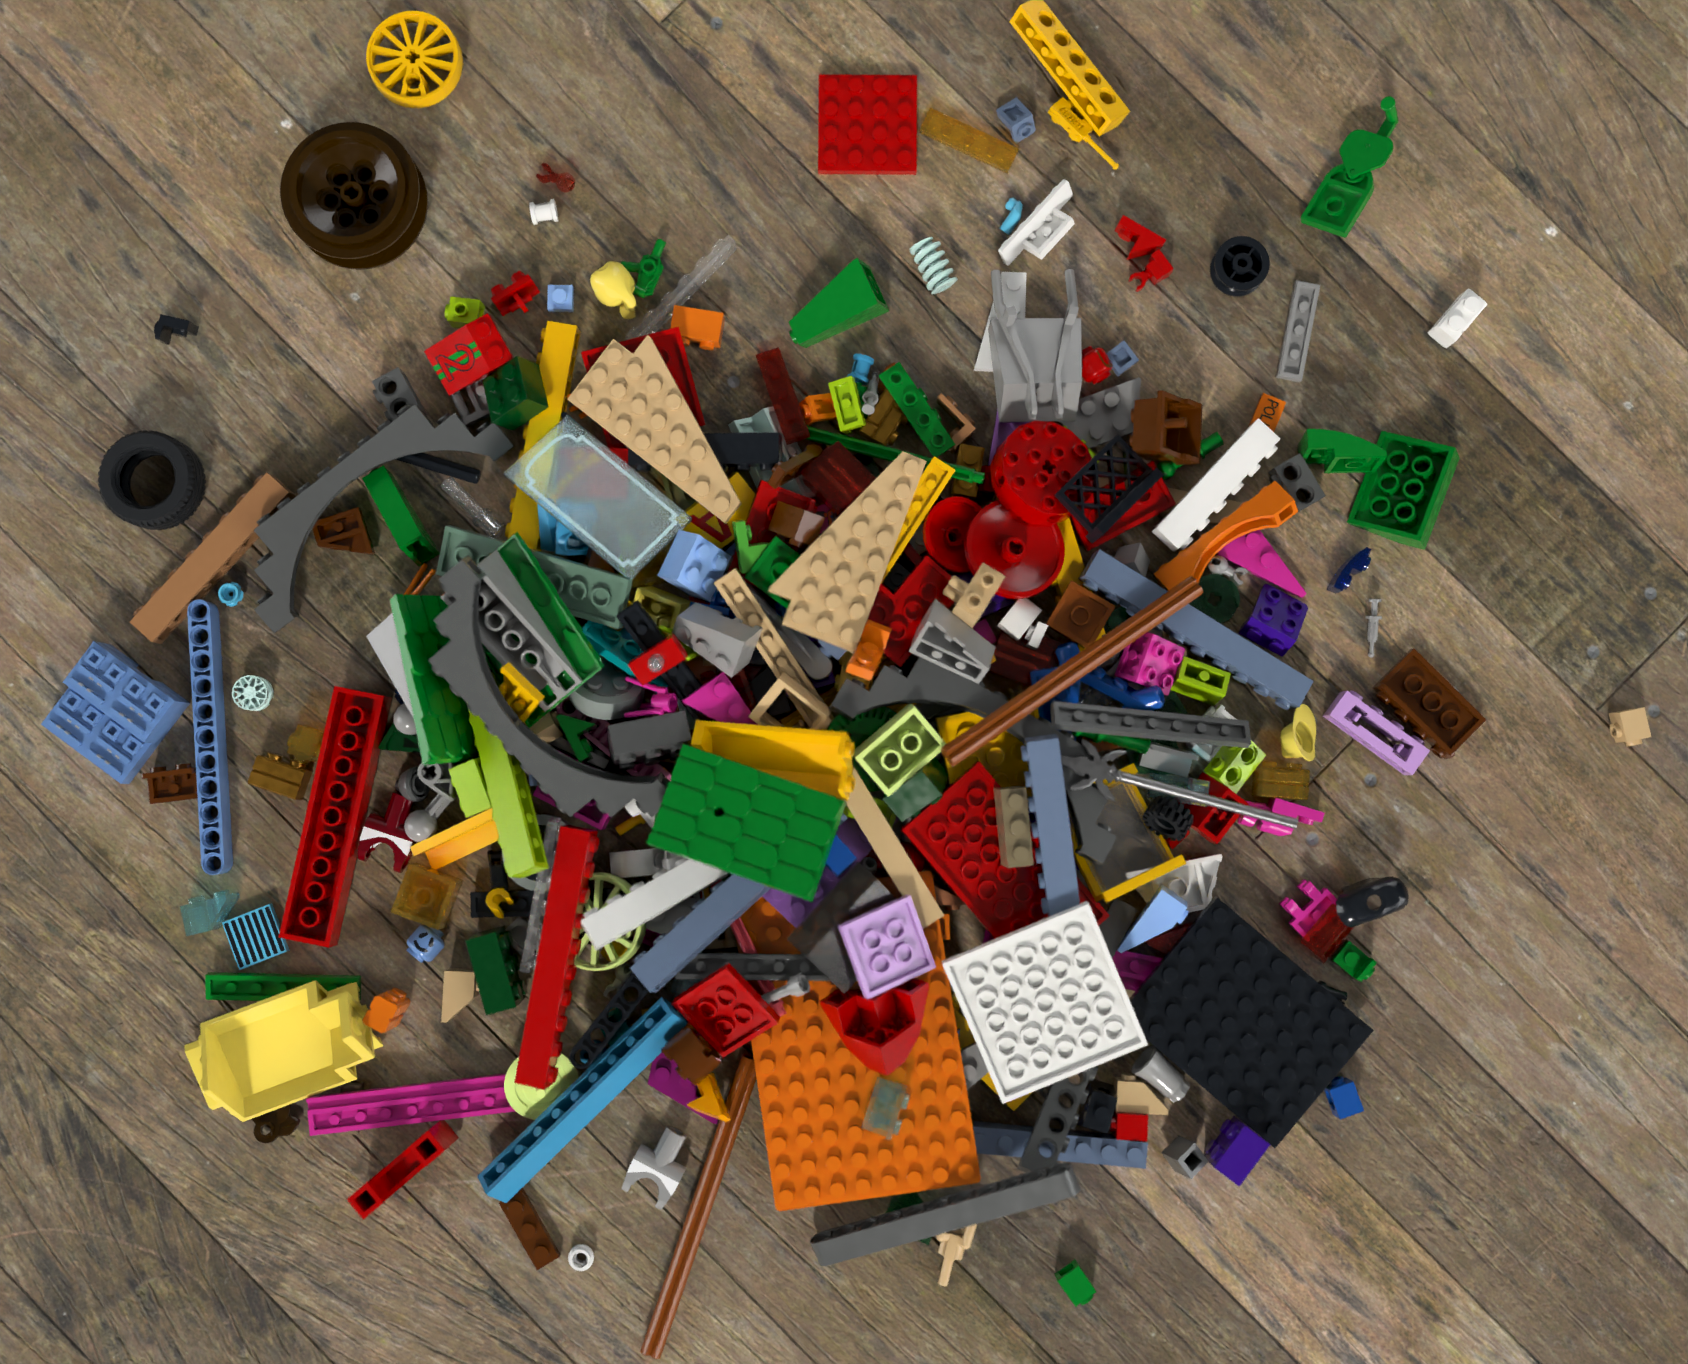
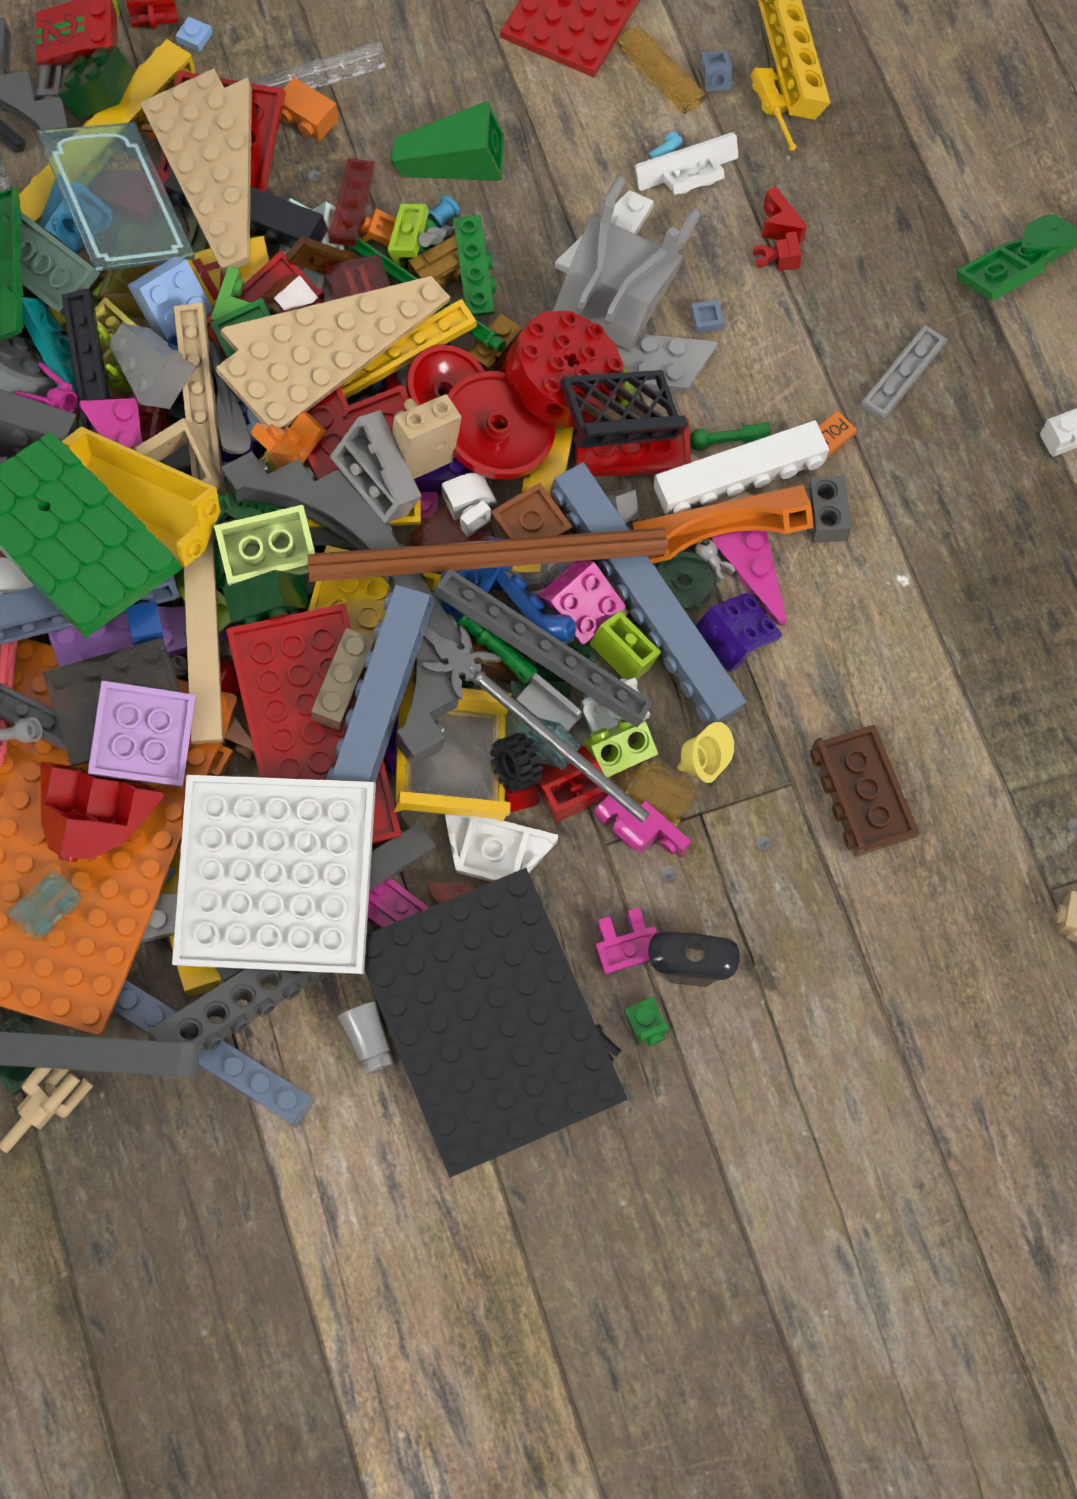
camera: 25 degrees right, 15 degrees down
(615, 287) = (247, 41): light yellow piece -> none
(648, 270) = (288, 44): green piece -> none
(658, 659) = (77, 351): red piece -> none
(932, 265) = (564, 153): light aqua piece -> none
(966, 423) = (517, 306): medium nougat bracket -> none
(1075, 1283) = (147, 1222): green brick -> none
(1095, 365) = (676, 308): red head -> none
(1098, 1107) = (276, 1036): black torso -> none
(1129, 1126) = (303, 1071): red brick -> none
(1136, 1096) = (327, 1047): tan slope -> none
(1157, 917) = (450, 860): light blue slope -> none
(1167, 429) = (716, 390): reddish brown piece -> none
(1184, 1157) = (344, 1137): dark grey brick -> none
(1232, 278) = (870, 283): black wheel -> none
(1235, 1150) = (403, 1155): dark purple brick -> none
(1326, 934) = (630, 977): clear red bracket -> none
(1340, 451) = (886, 491): green slope -> none
(1343, 1097) = (558, 1163): blue brick -> none
(1353, 565) = (847, 613): clear blue slope -> none
(1373, 622) = (841, 687): light grey piece -> none
(1405, 490) = (942, 566): green slope -> none
(1410, 756) = (817, 825): lavender brick -> none

